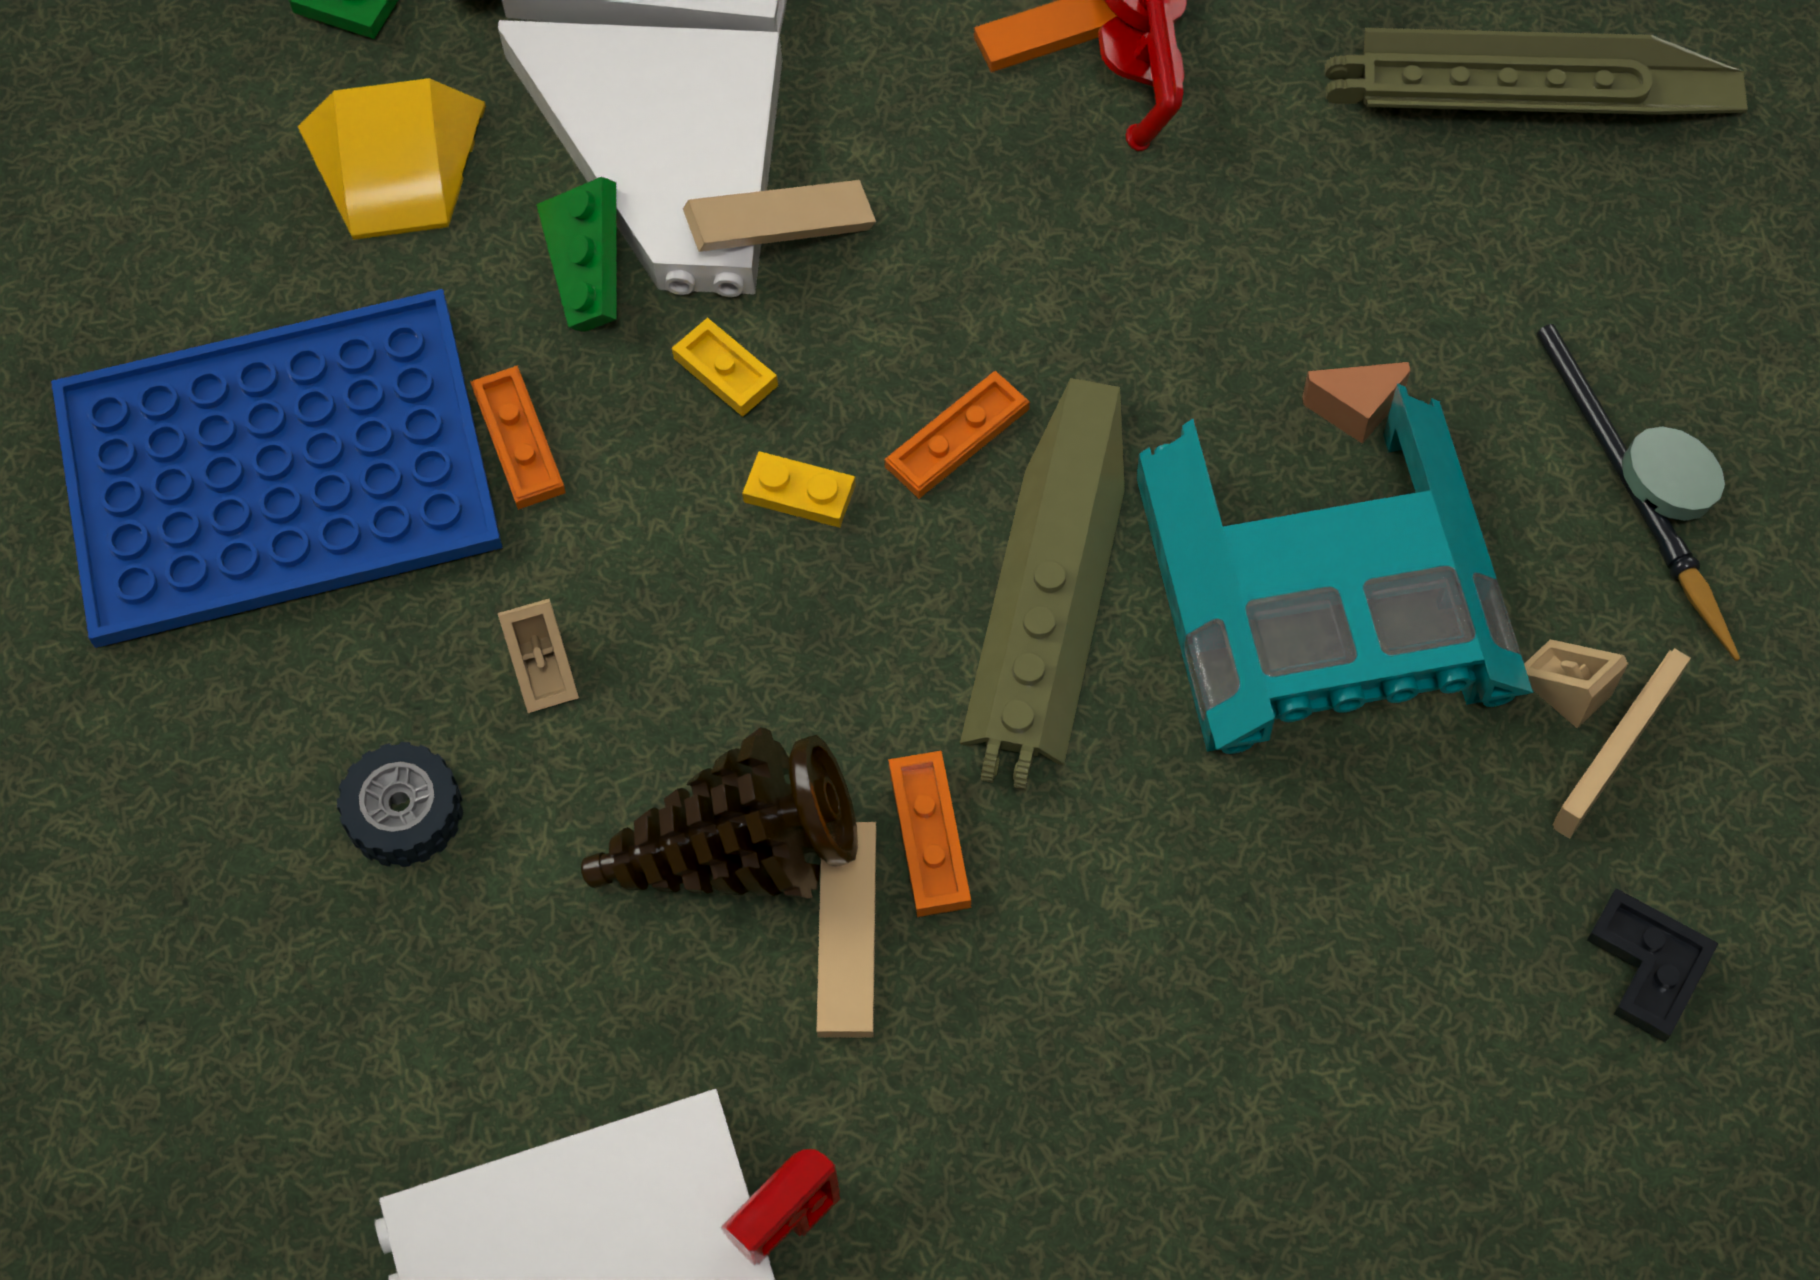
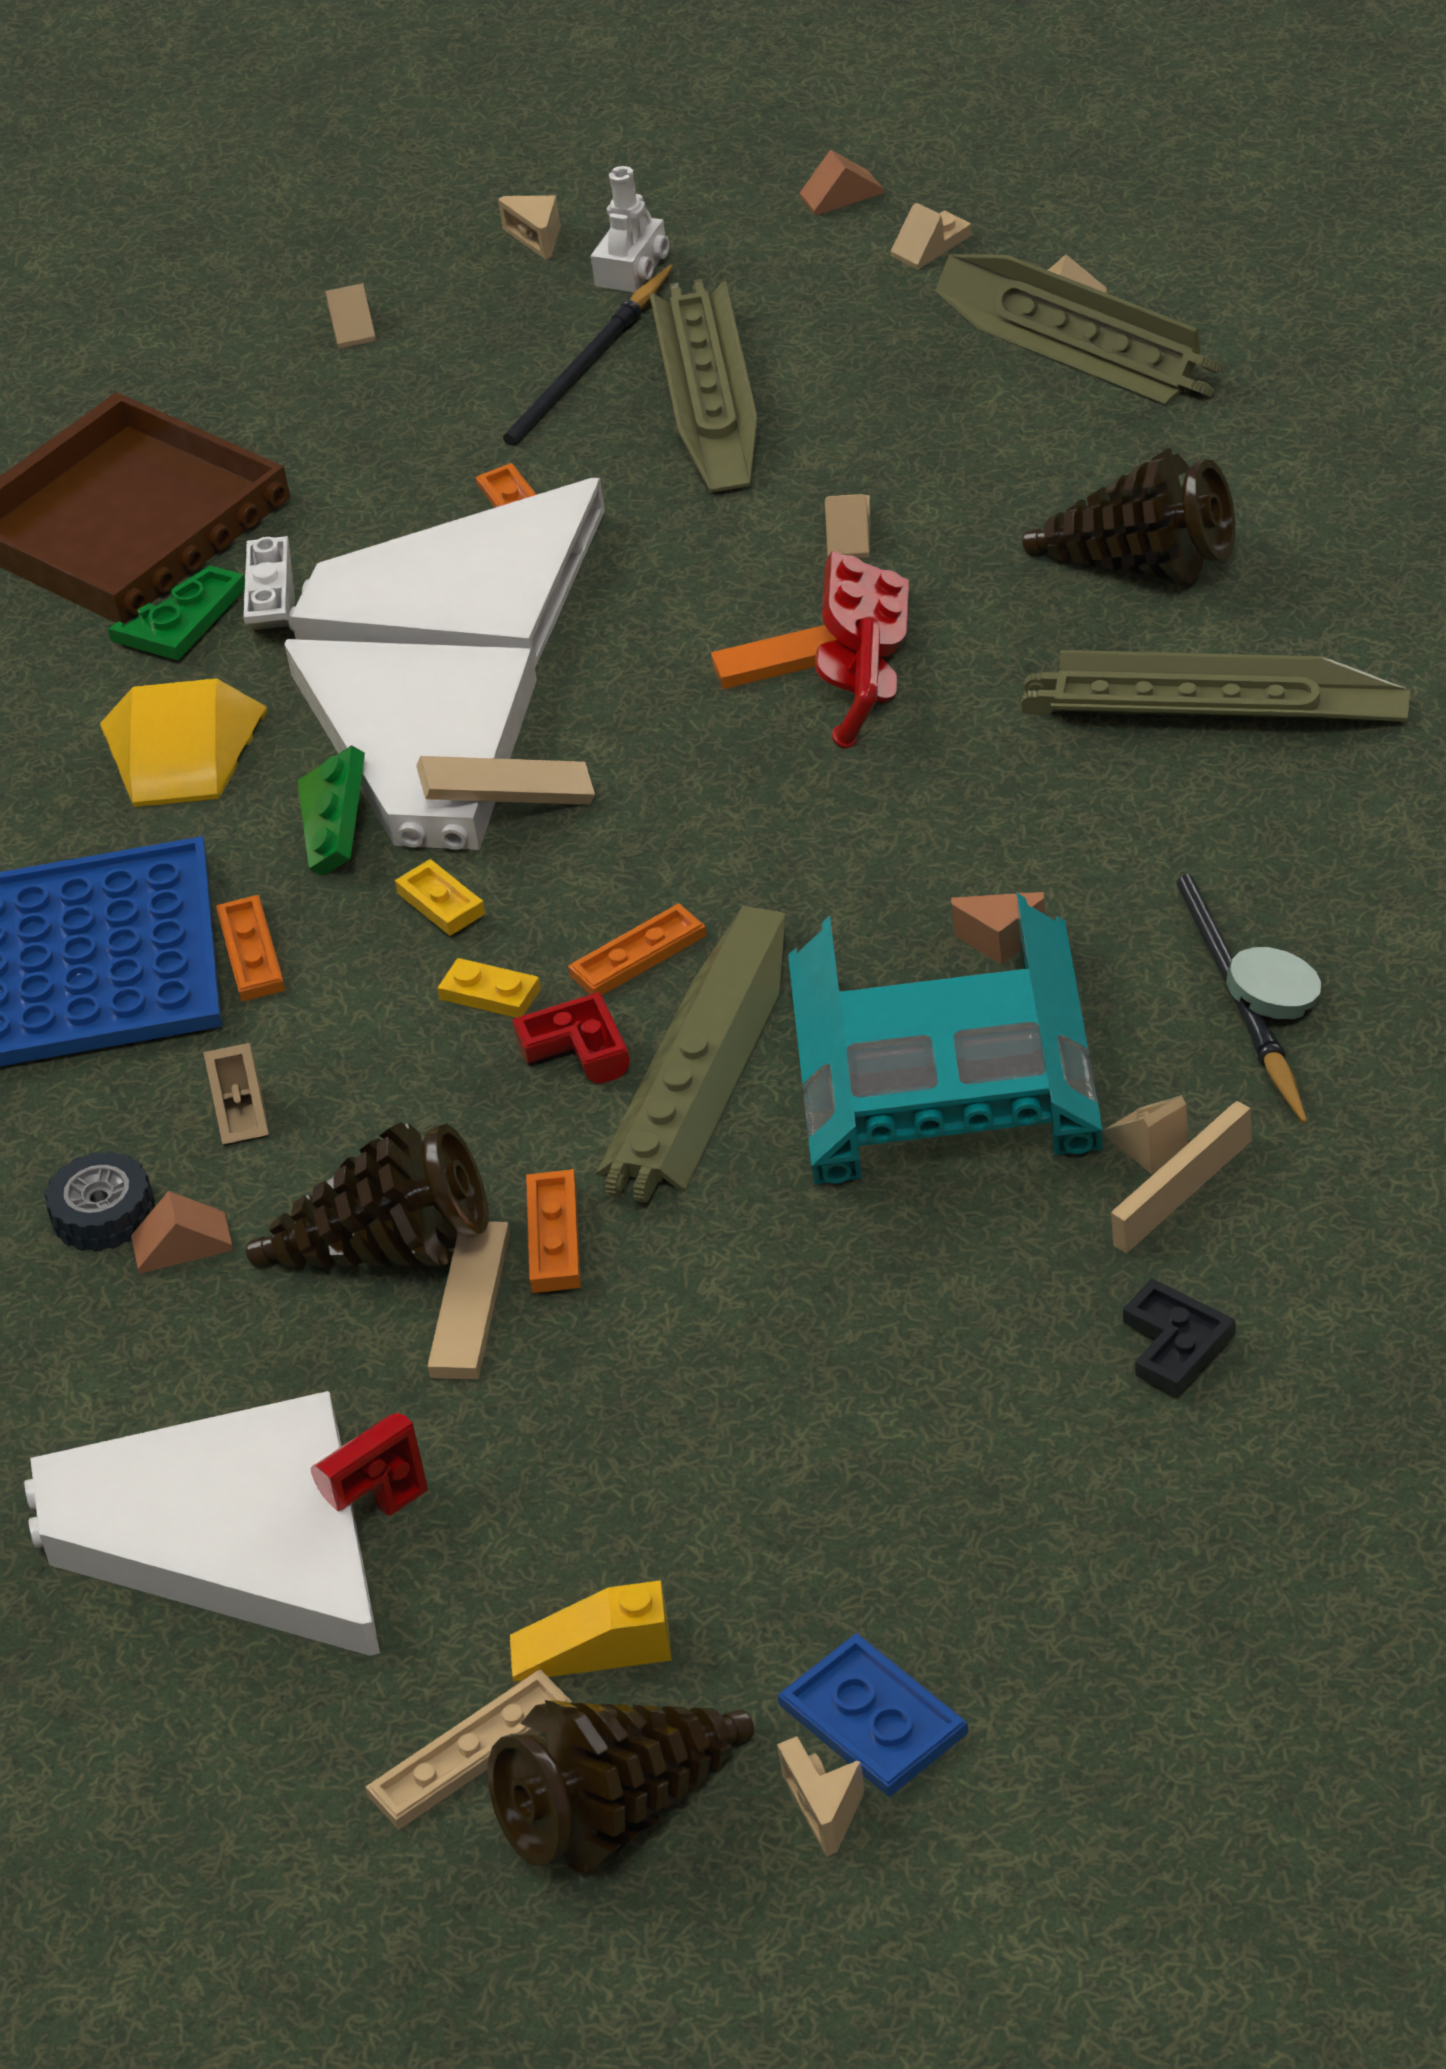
camera: 10 degrees right, 20 degrees down
(500, 848) = (179, 1233): none -> nougat slope
(916, 546) = (577, 1026): none -> red brick

